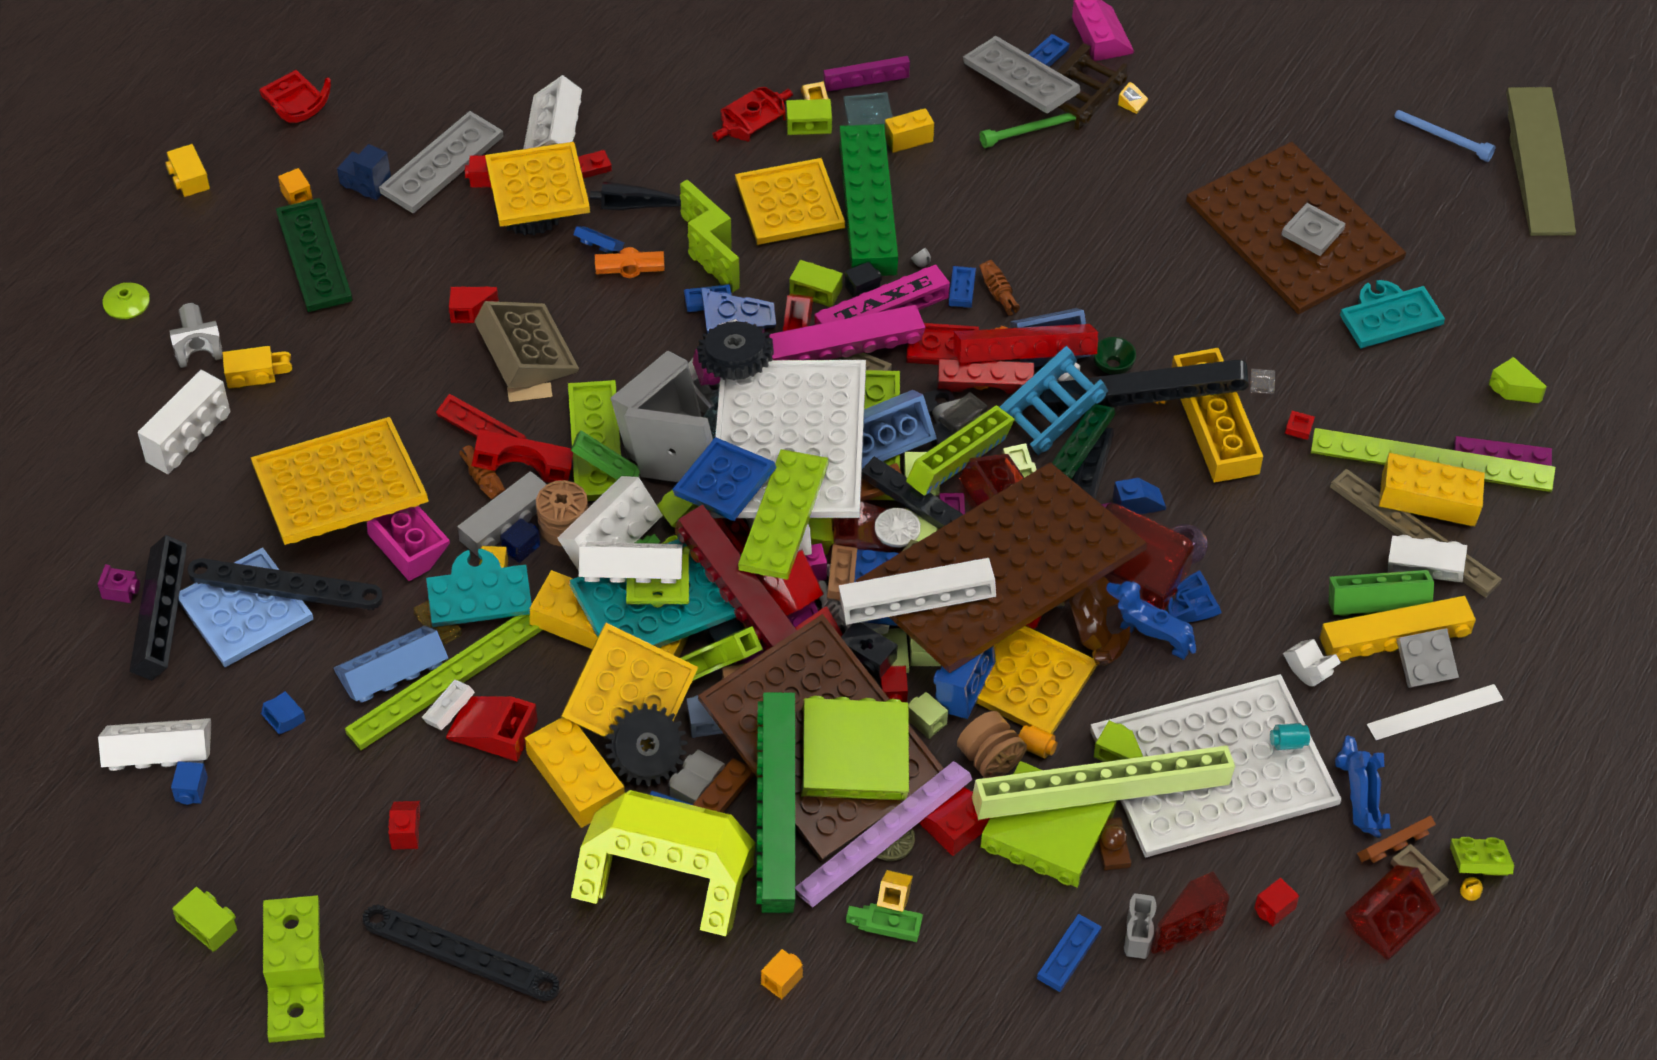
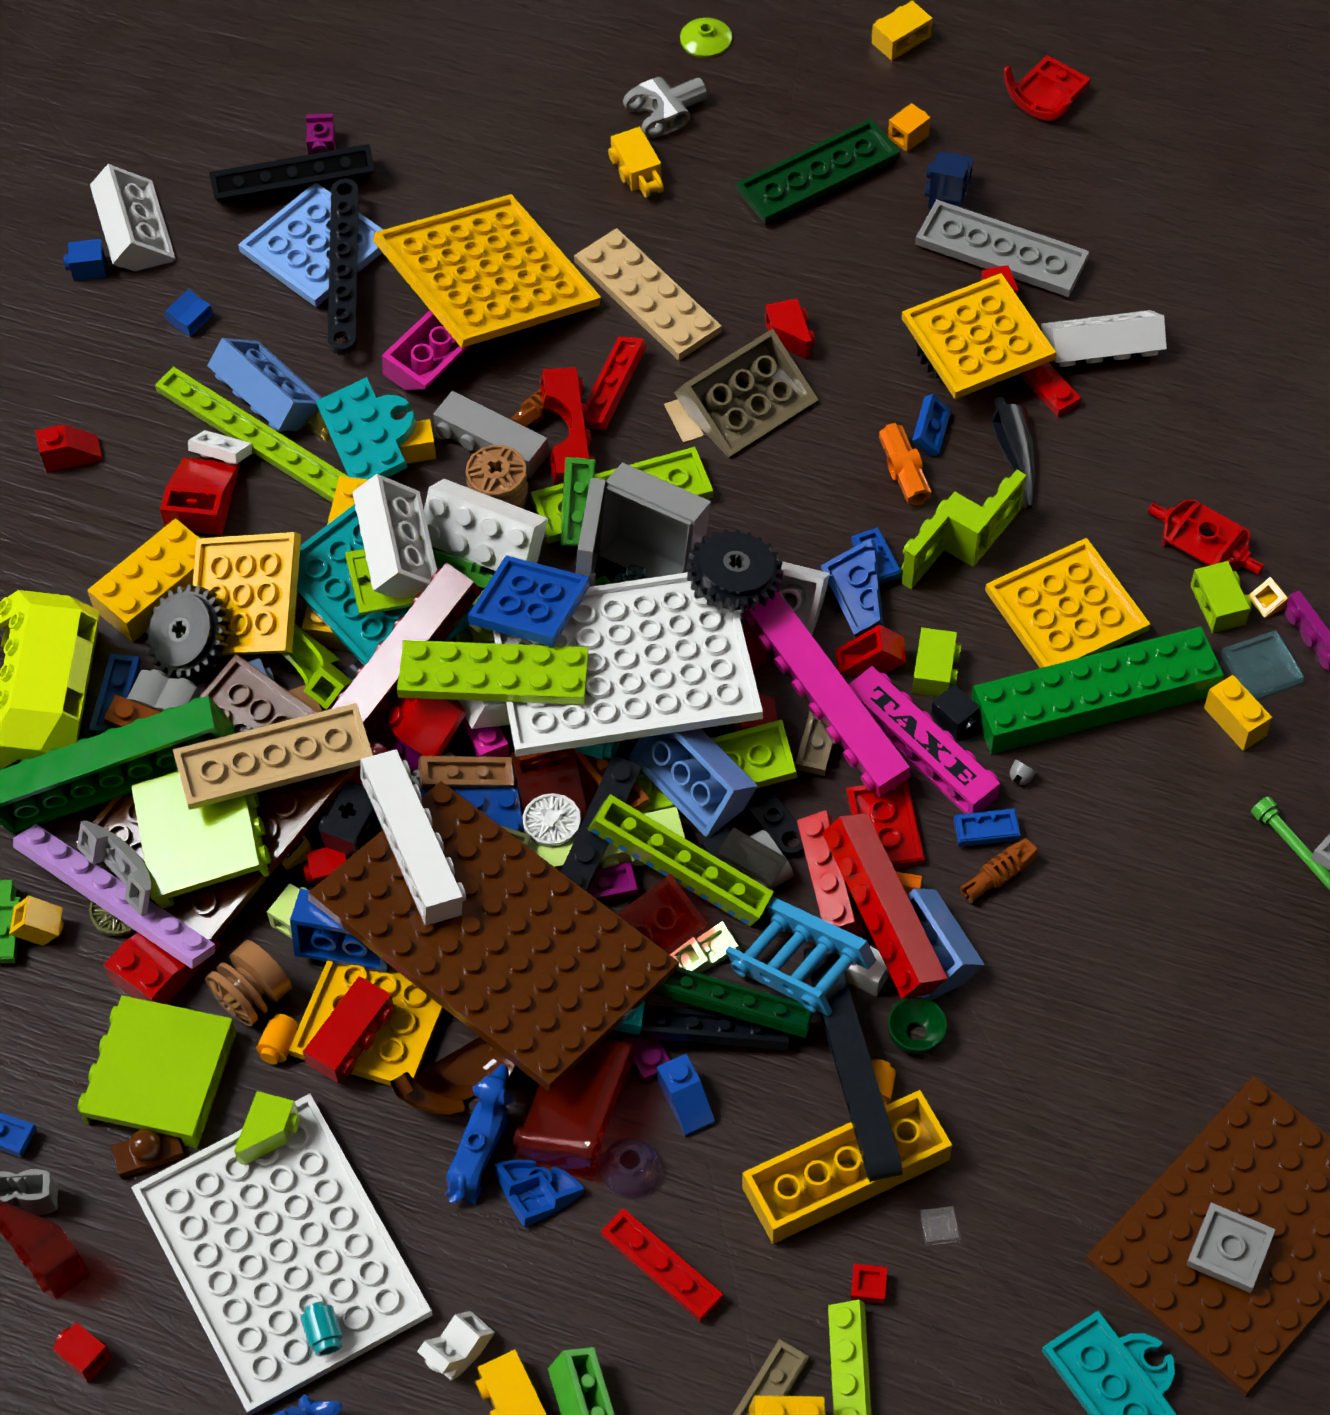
camera: 80 degrees right, 5 degrees up
(184, 422) = (534, 122): white brick -> none
(393, 389) = (648, 294): none -> tan plate
(520, 540) = (453, 456): clear blue brick -> none
(819, 670) = (272, 756): none -> tan plate
(868, 810) = (104, 846): none -> light grey slope
(1048, 684) = (349, 1030): none -> red brick
(1102, 782) = (196, 1110): yellowish green brick -> none
(1265, 536) = (662, 1265): none -> red plate

